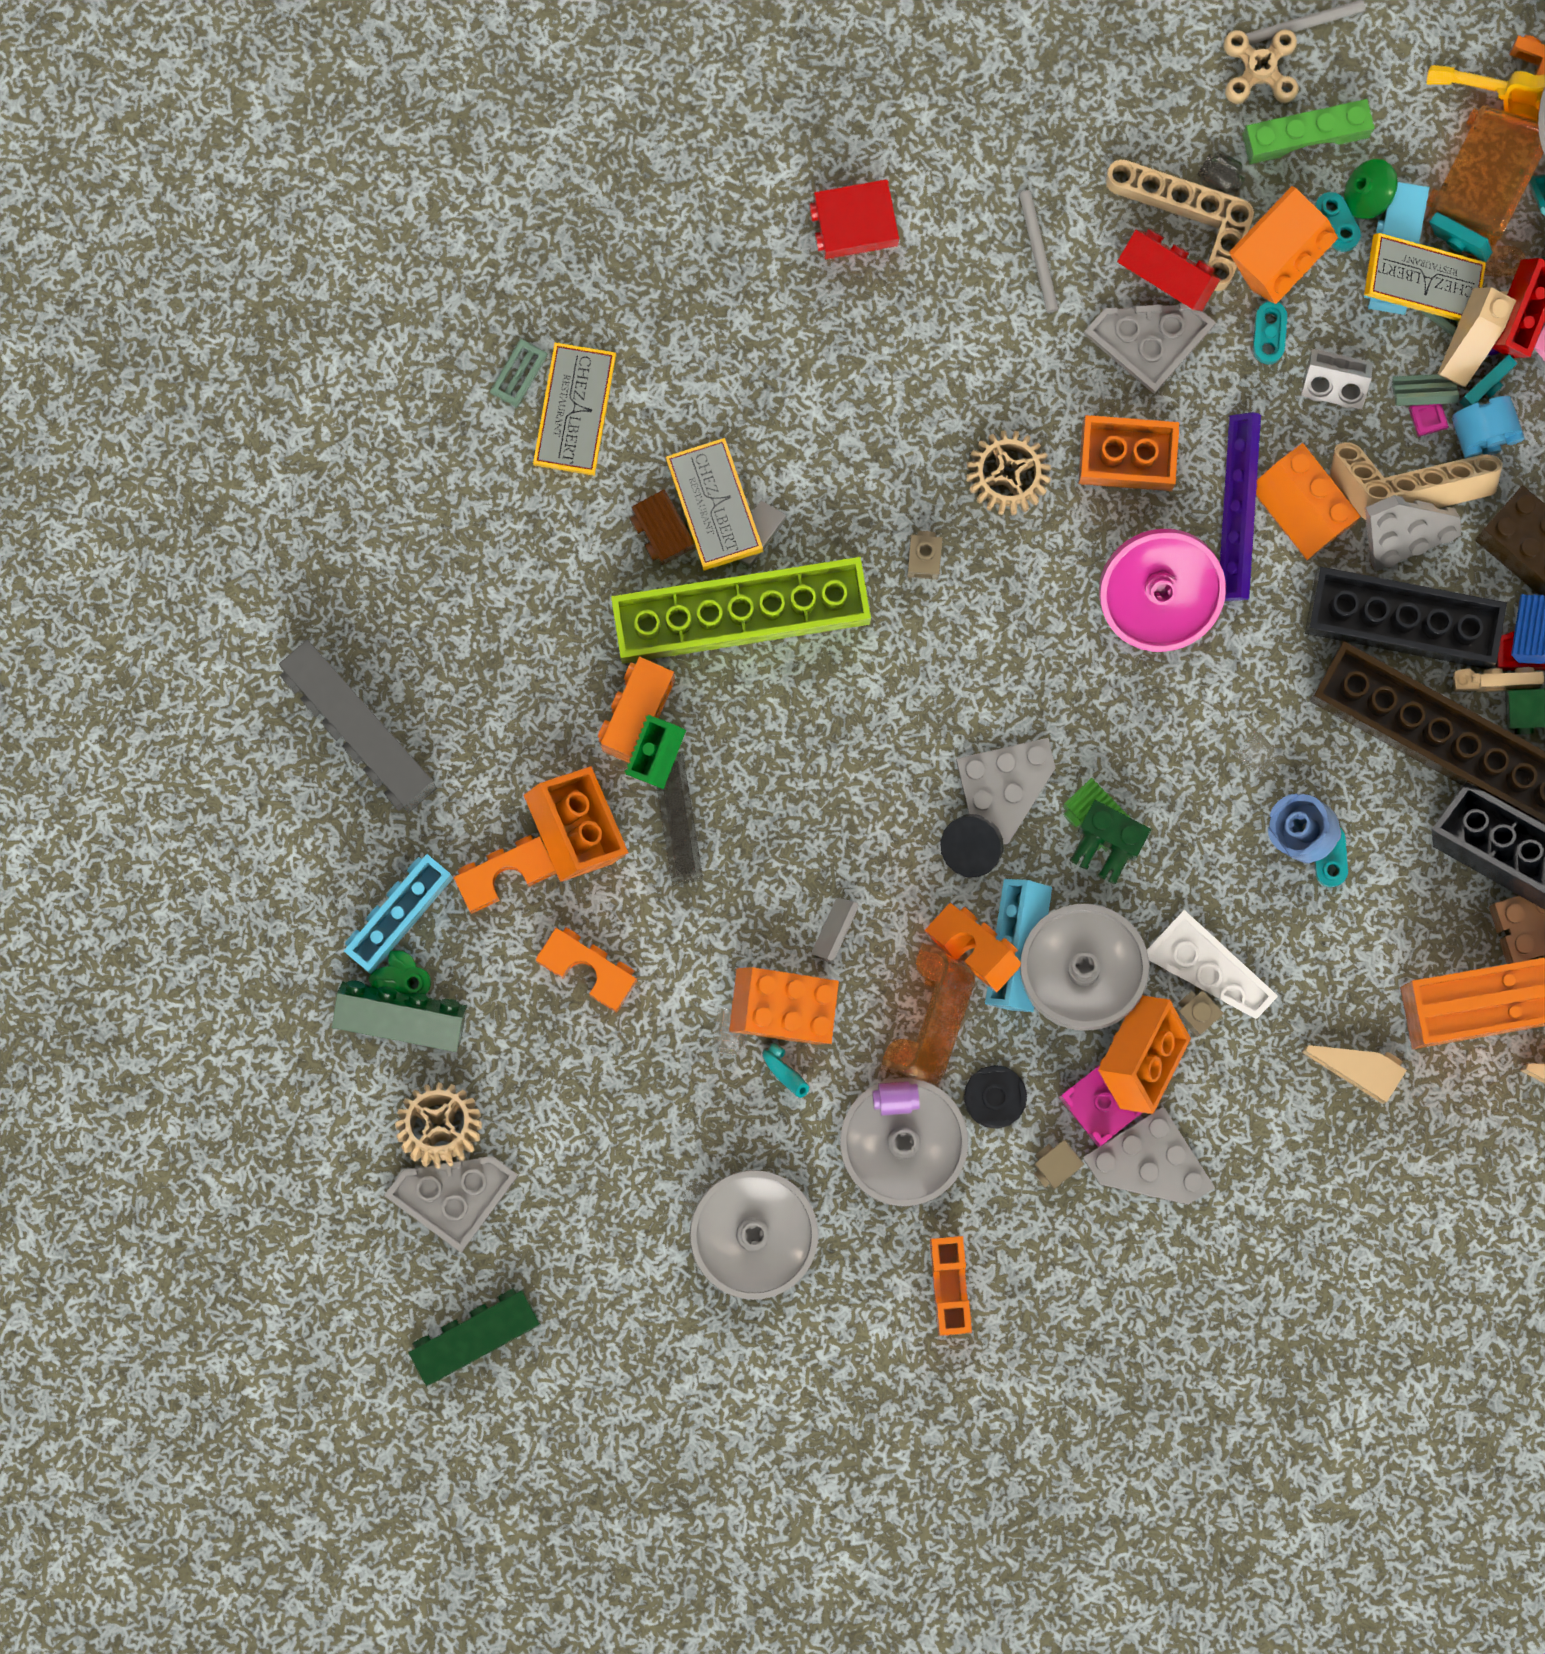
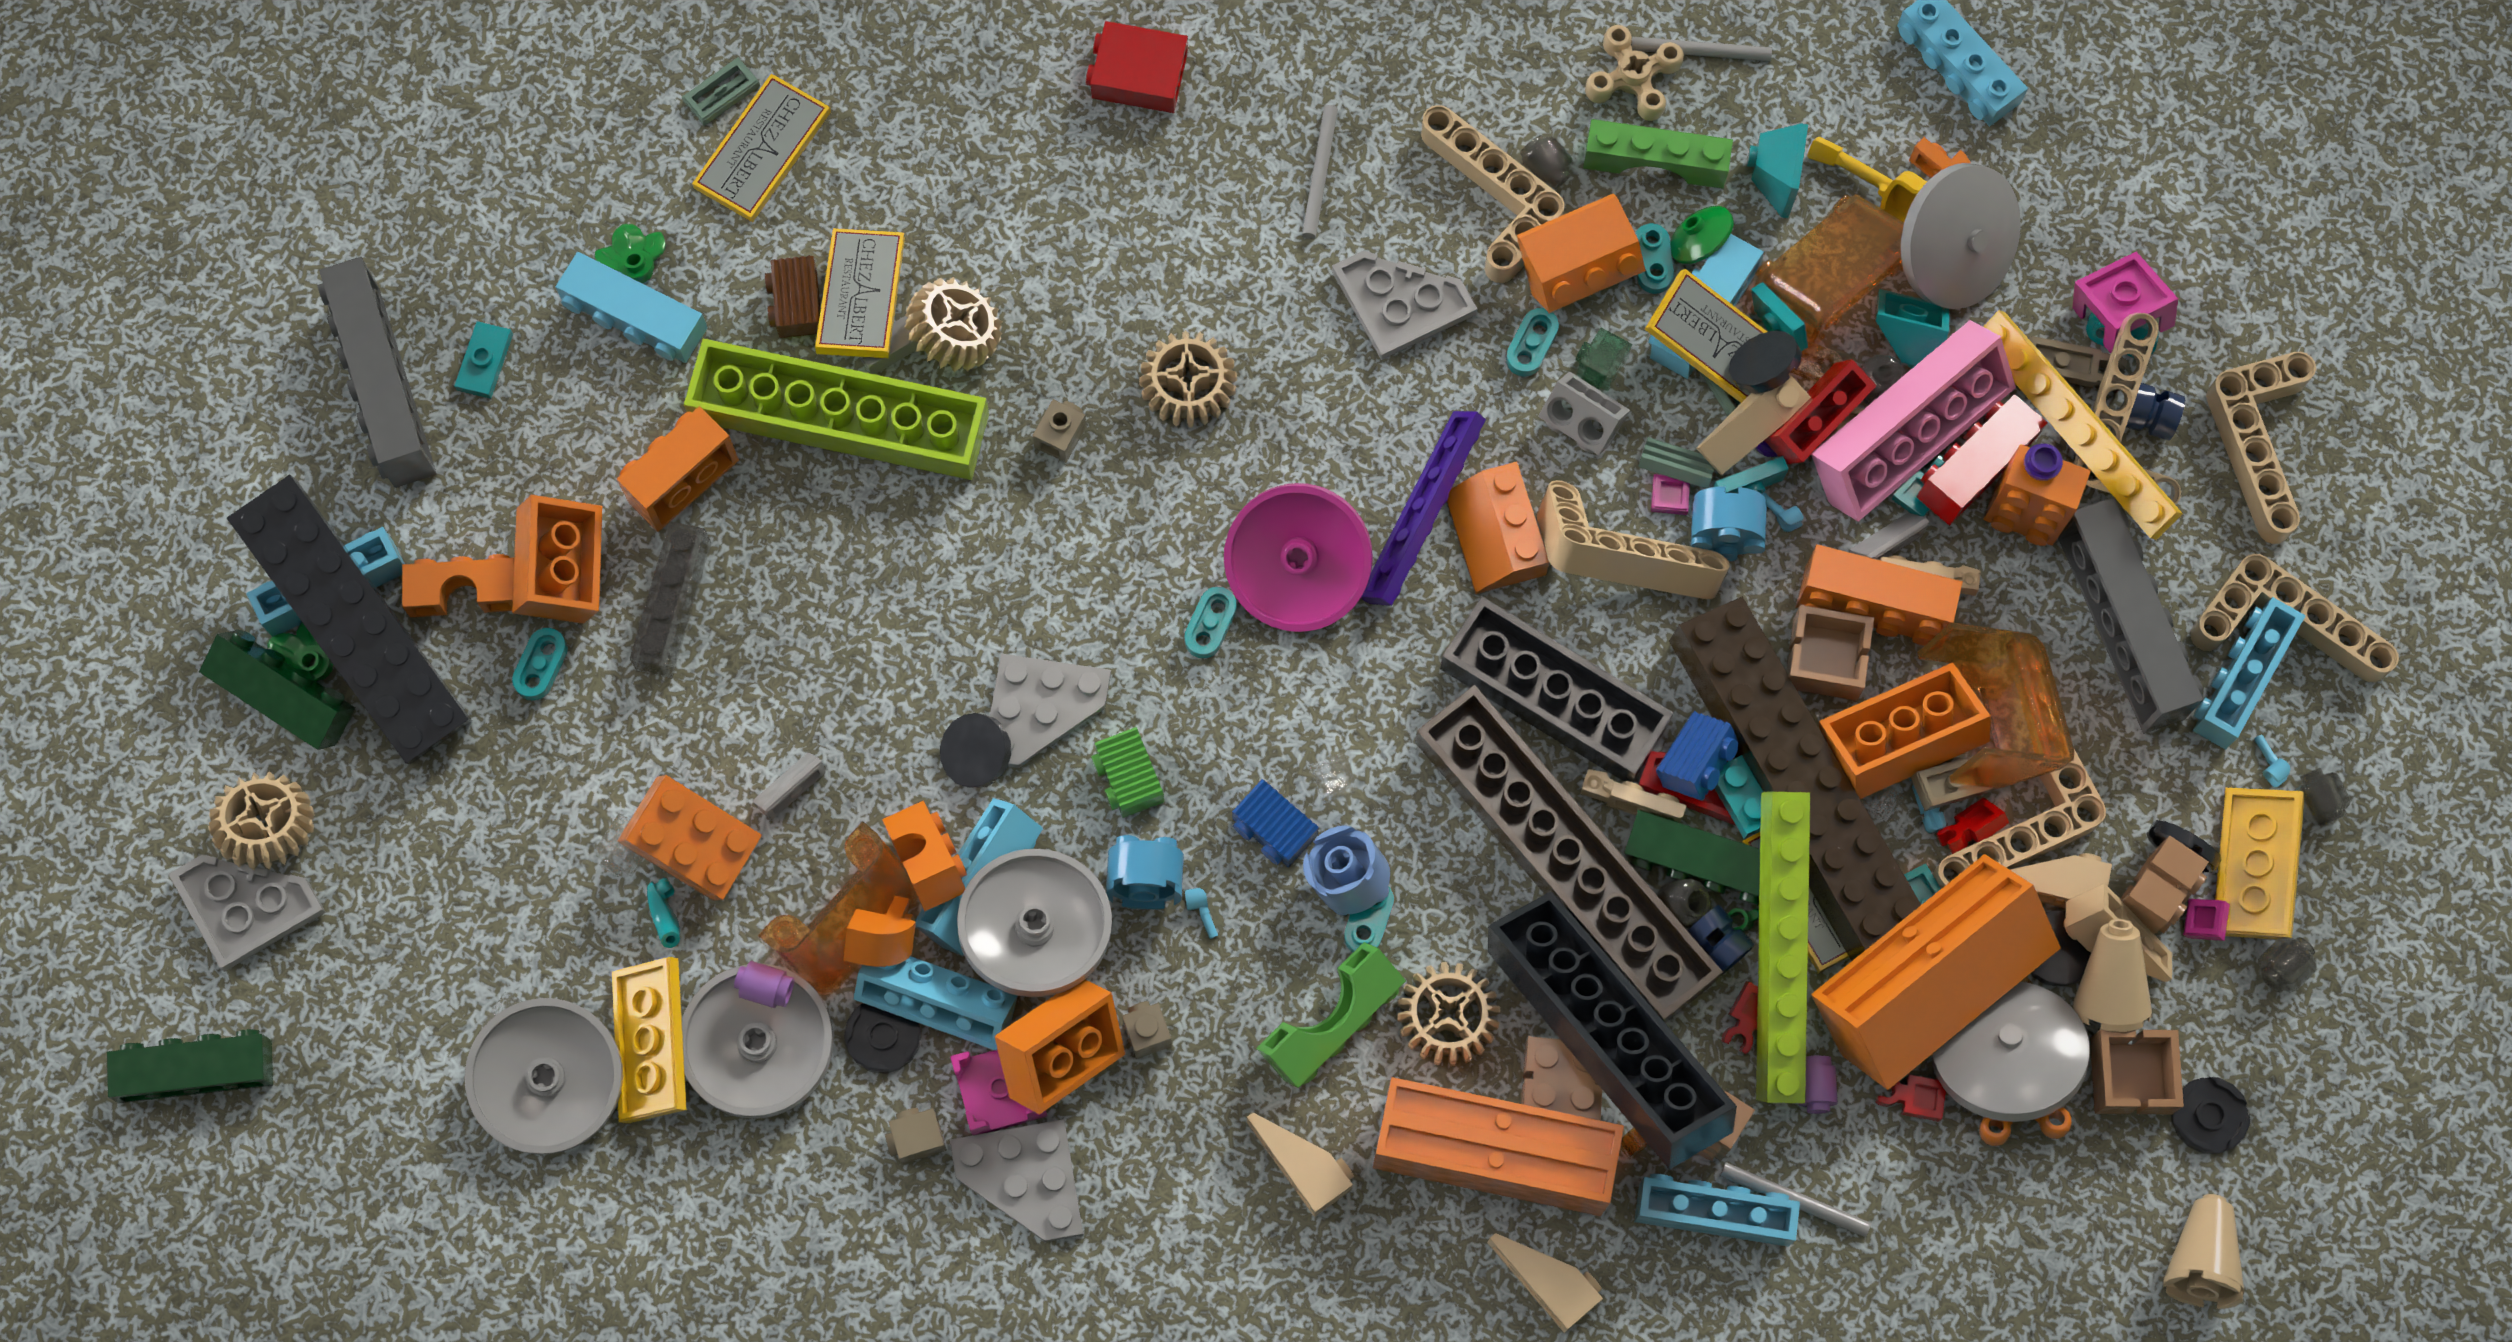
camera: 25 degrees right, 10 degrees down
(431, 679) = (483, 360): none -> teal plate
(440, 940) = (349, 619): none -> black brick
(506, 538) = (632, 252): none -> green plate
(534, 590) = (631, 307): none -> medium azure brick
(565, 951) = (484, 693): orange arch -> none
(595, 912) = (536, 664): none -> teal plate
(655, 751) = (669, 509): green brick -> none
(785, 497) = (953, 324): none -> tan gear
(821, 1173) = (649, 1039): none -> yellow tile
(950, 1285) = (742, 1207): orange arch -> none
(972, 1026) = (881, 938): none -> orange brick
(1026, 1053) = (938, 999): none -> medium azure brick
(1110, 668) = (1210, 624): none -> teal plate
(1113, 830) = (1131, 786): dark green brick -> none
(1128, 453) = (1324, 404): orange brick -> none
(1147, 891) = (1145, 872): none -> dark azure brick
(1169, 269) = (1448, 233): red brick -> none
(1192, 894) = (1197, 899): none -> medium azure hand
(1203, 961) = (1177, 976): white wing -> none
(1228, 811) = (1274, 824): none -> blue brick
(1332, 326) = (1602, 359): none -> clear green brick
(1352, 913) = (1366, 984): none -> bright green arch
(1407, 529) = (1594, 595): light grey plate -> none
(1412, 105) = (1778, 165): none -> teal slope
(1435, 914) = (1458, 1027): none -> tan gear
(1470, 285) = (1765, 361): none -> black tile
(1528, 402) = (1787, 519): none -> medium azure hand

